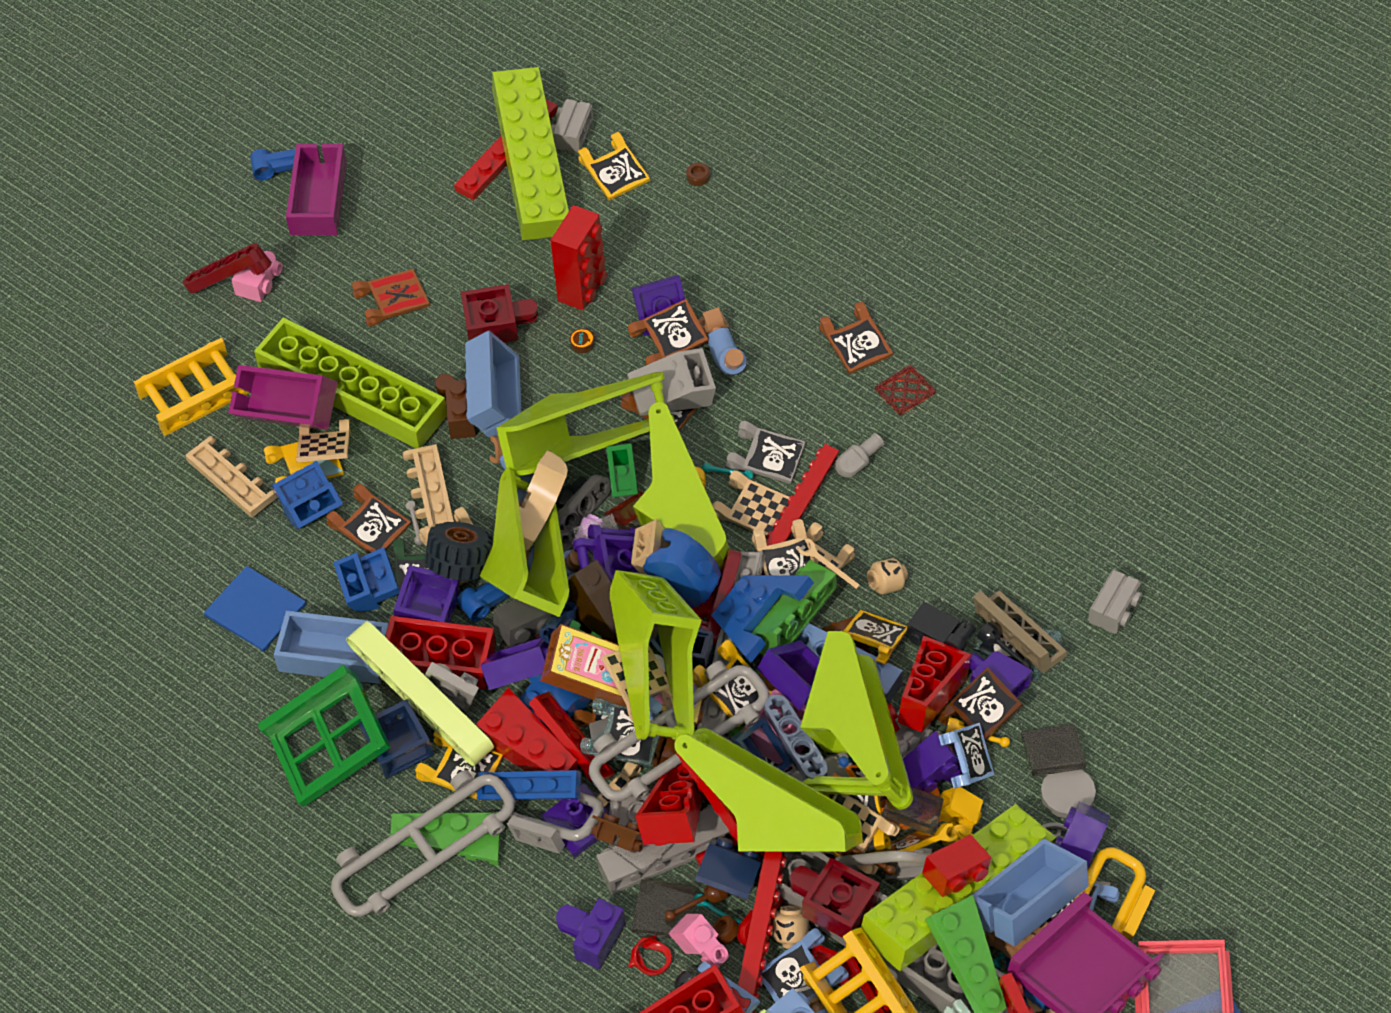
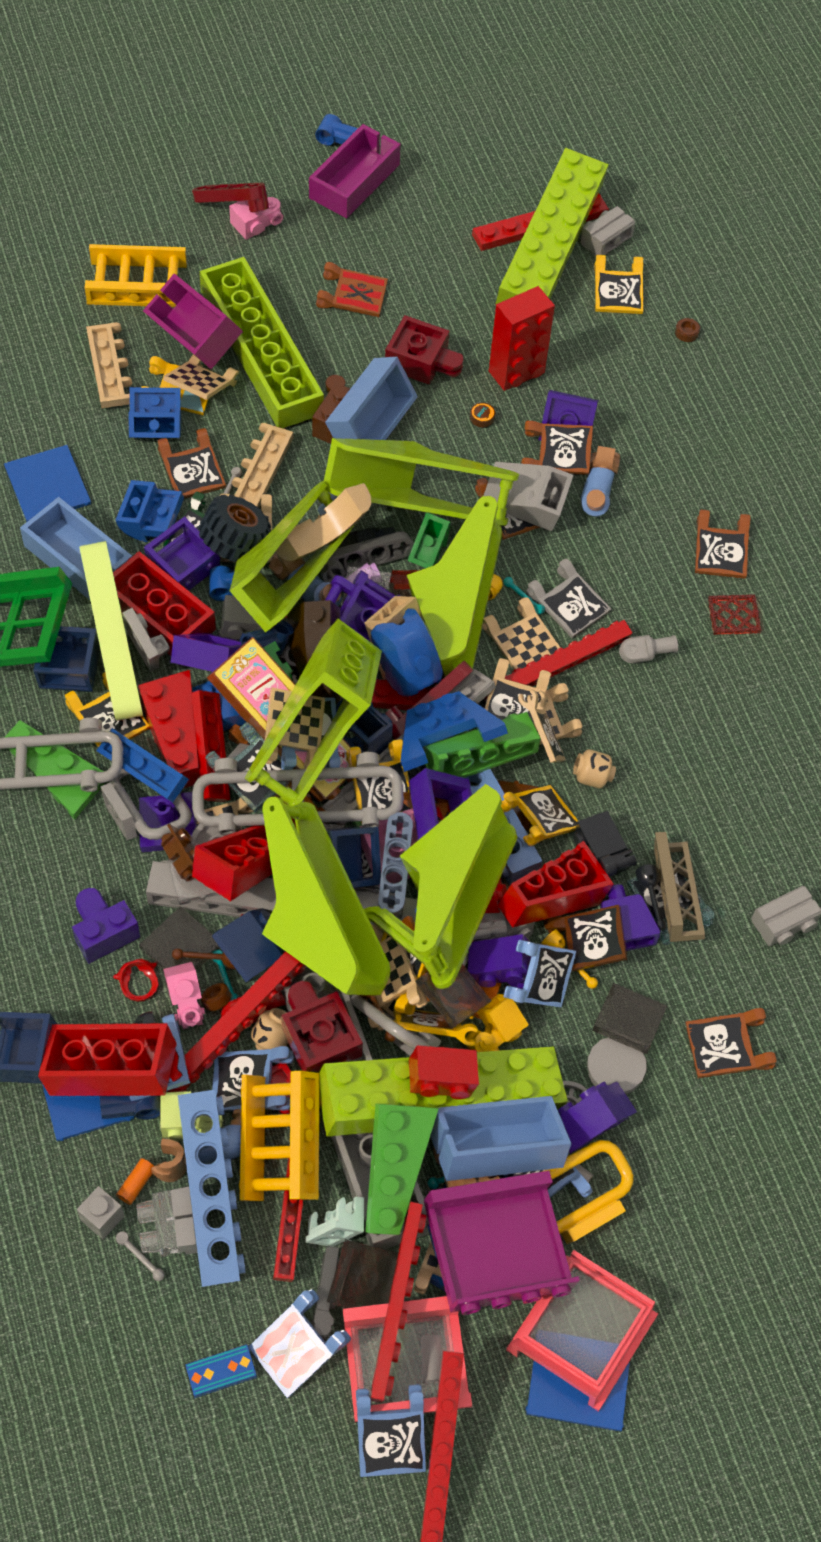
camera: 25 degrees right, 5 degrees up
(1136, 728) = (723, 1044): none -> flag

